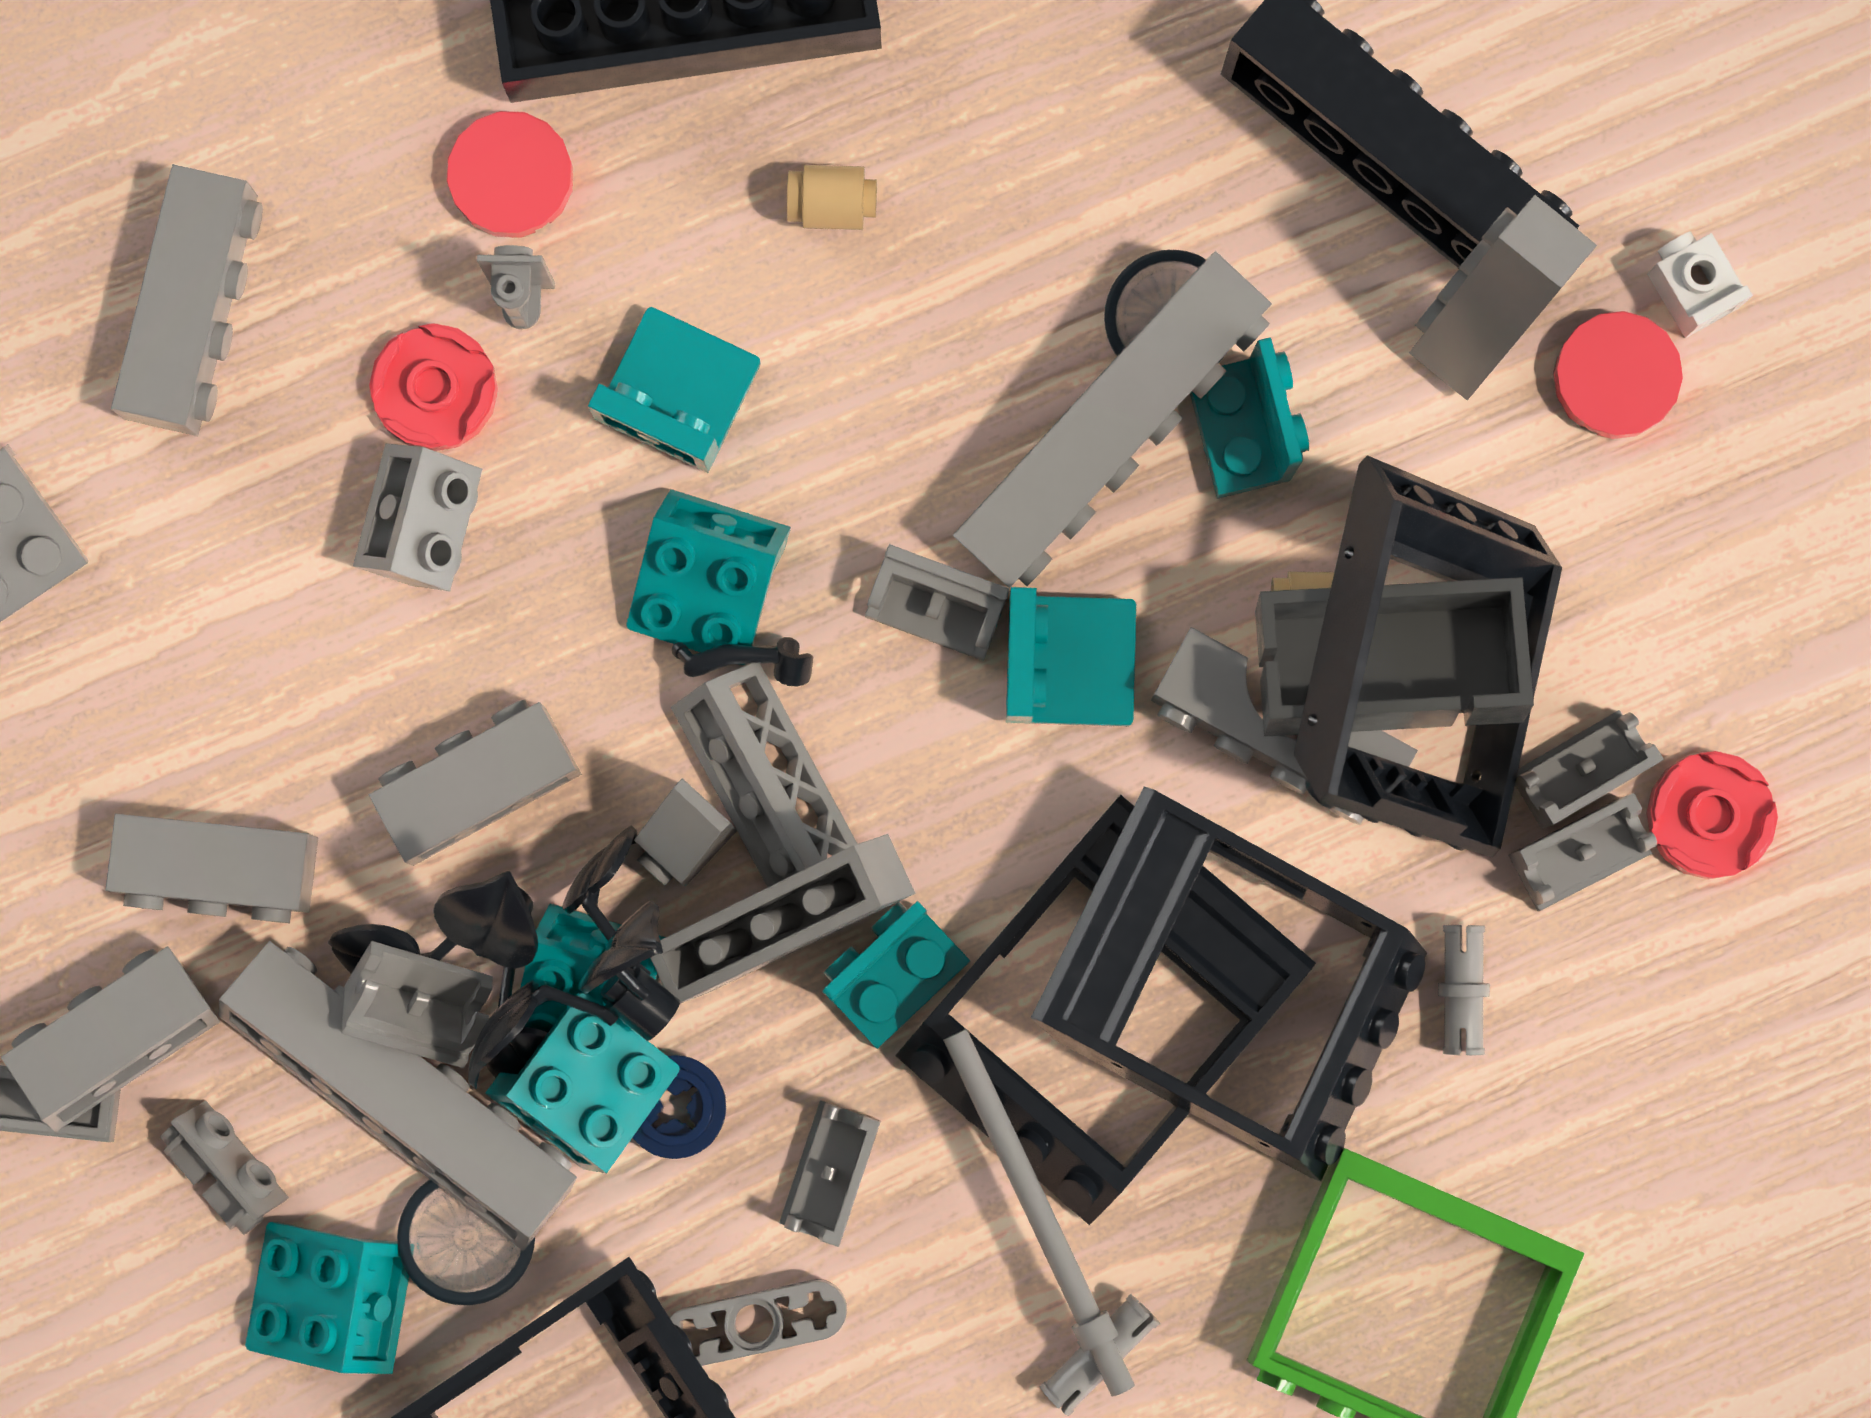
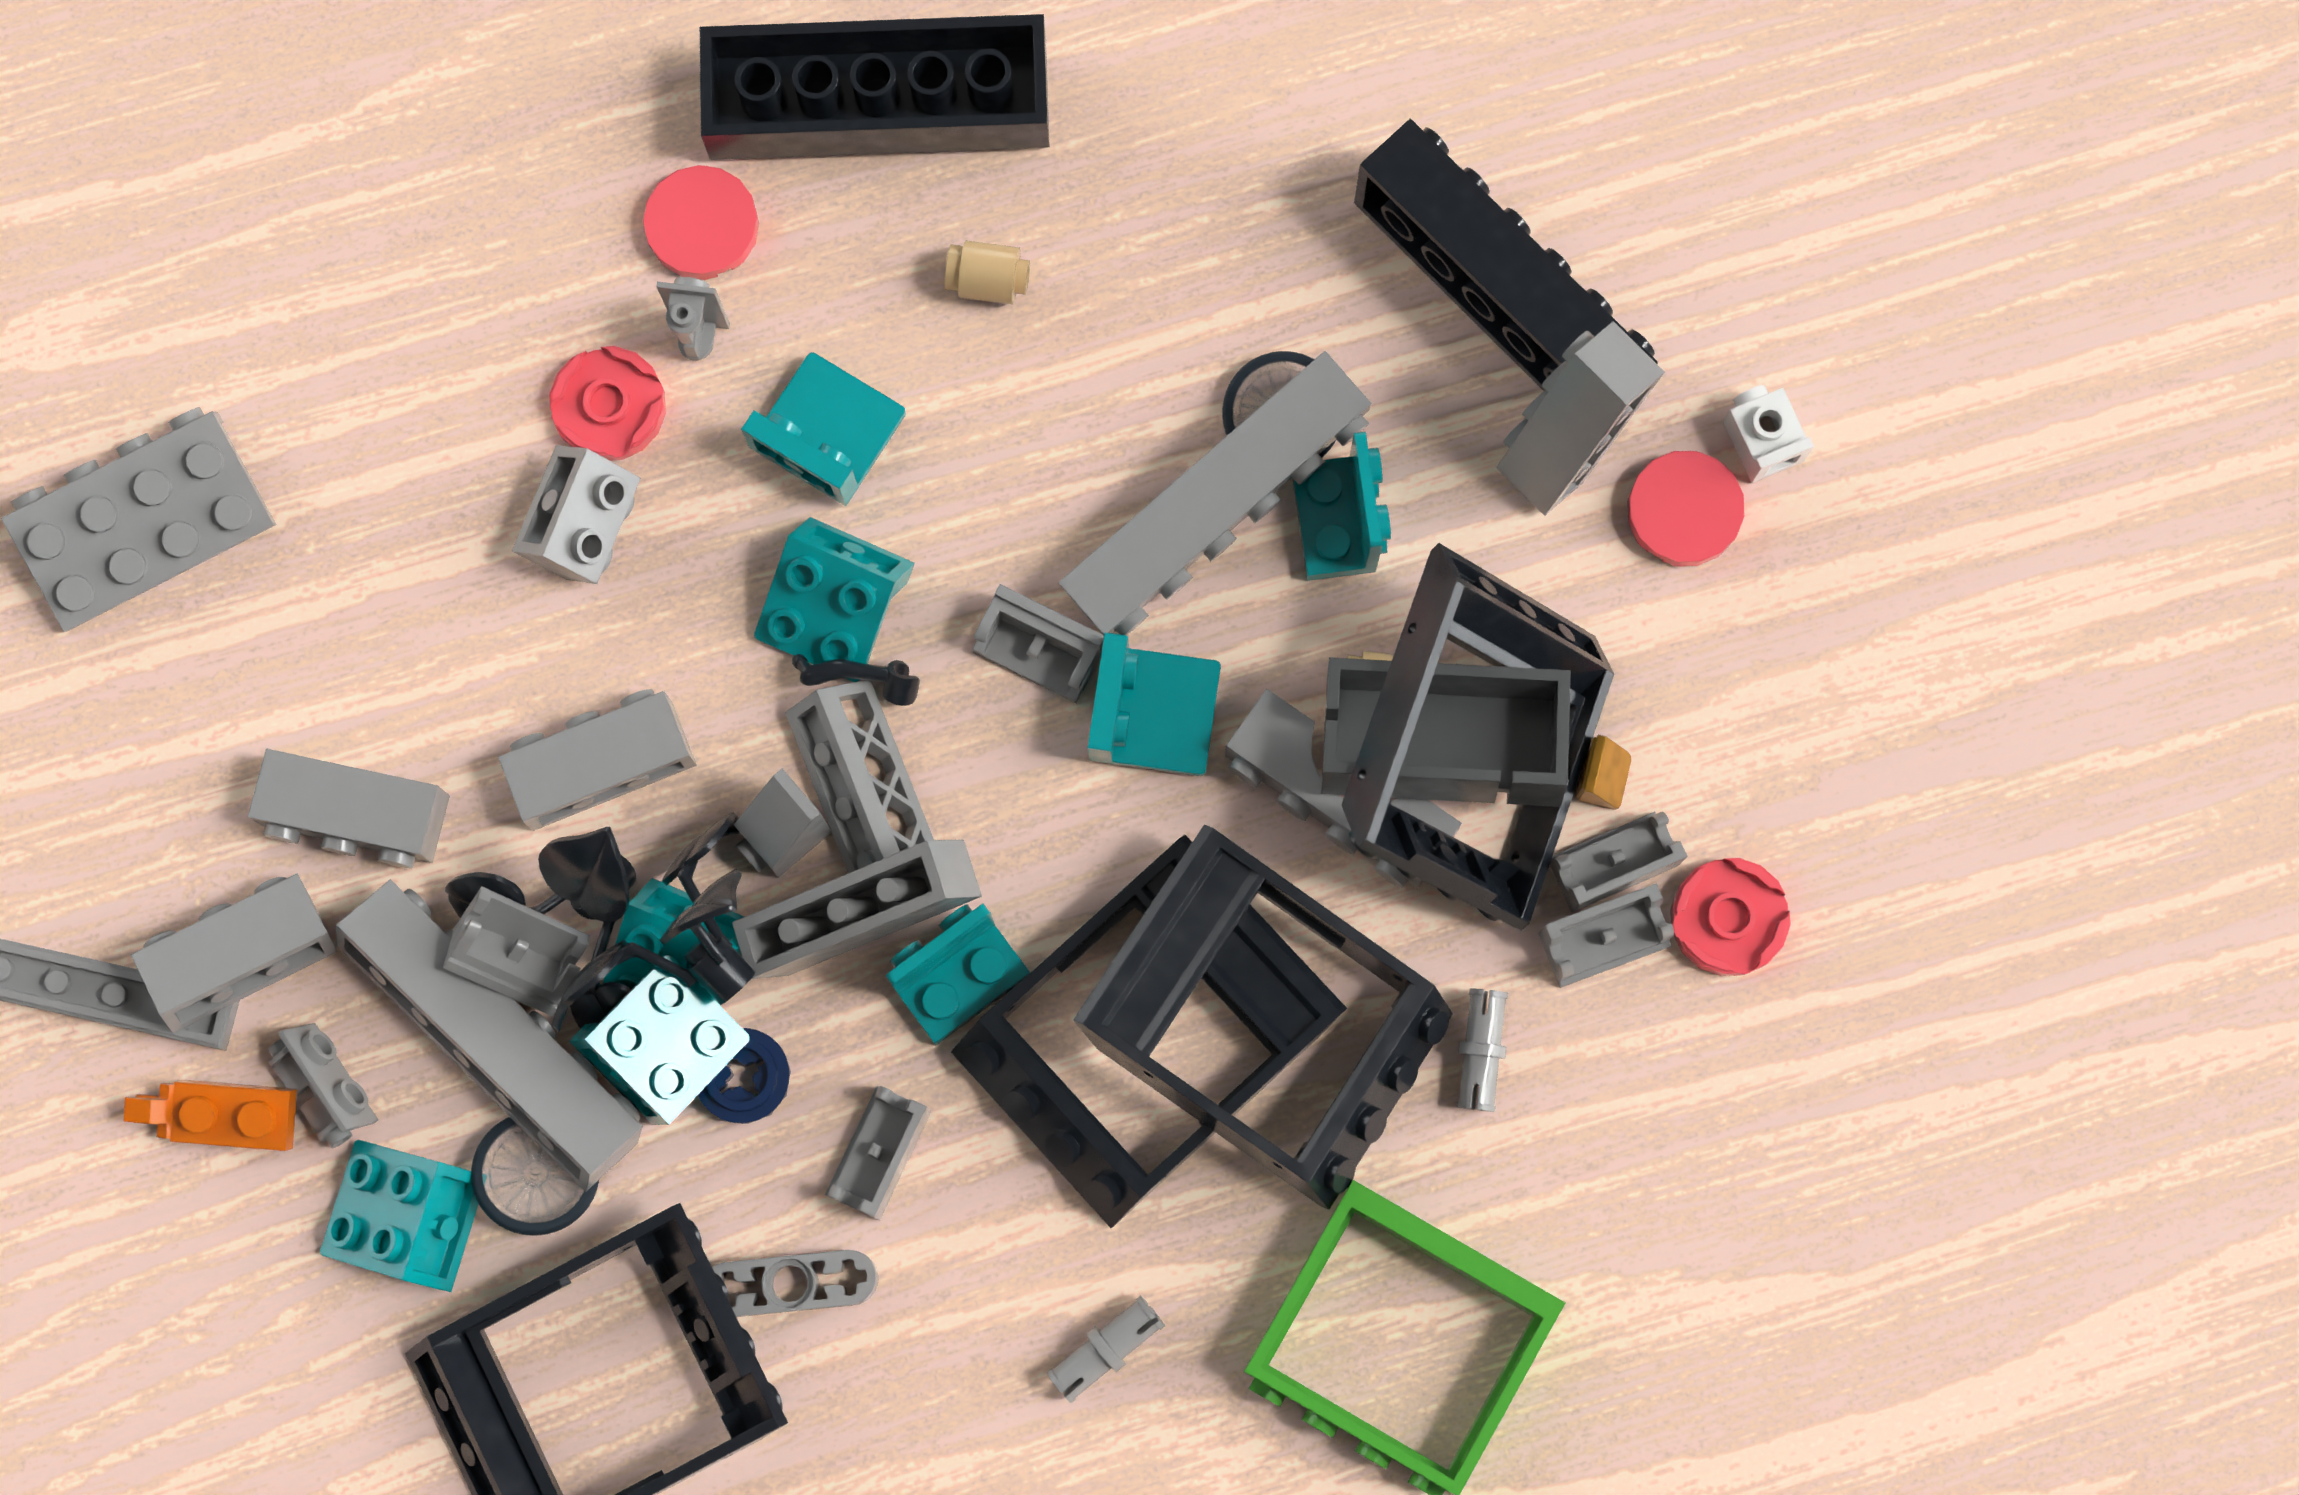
camera: 10 degrees right, 5 degrees down
(116, 1212) = (218, 1114): none -> orange hinge
(187, 300) = (395, 302): light grey brick -> none
(1093, 1328) = (1101, 1319): light grey bar -> none
(1561, 676) = (1604, 774): none -> pearl gold slope

